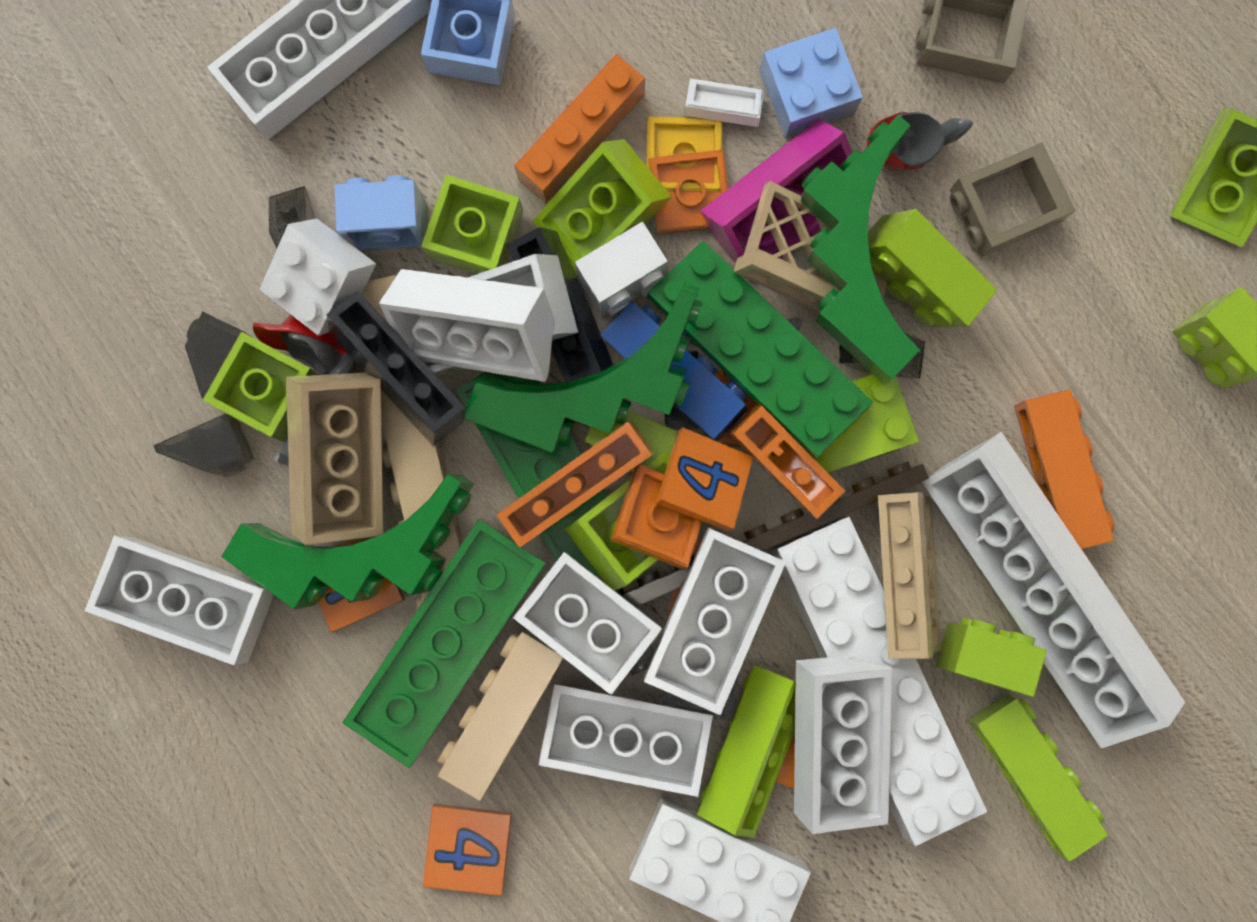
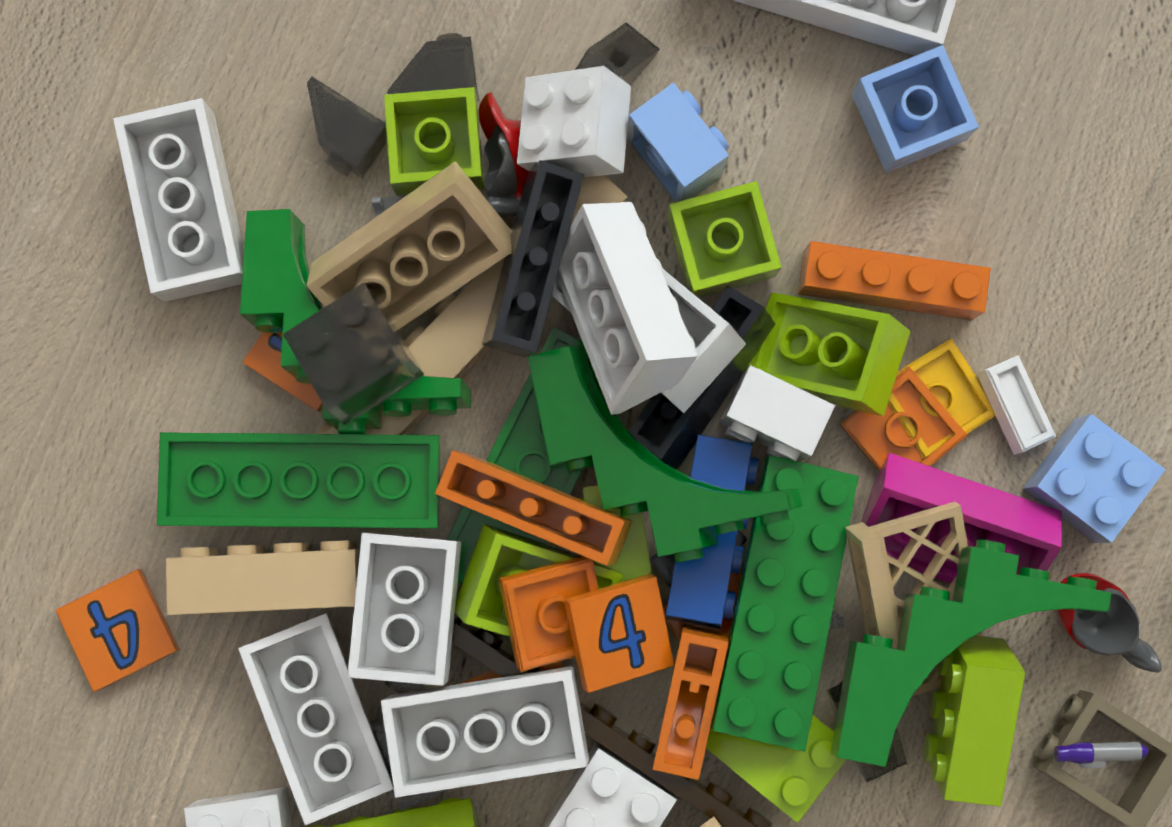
camera: 55 degrees right, 0 degrees up
(377, 540) = (353, 354): none -> clear smoke brick
(1003, 202) = (1098, 754): none -> piece

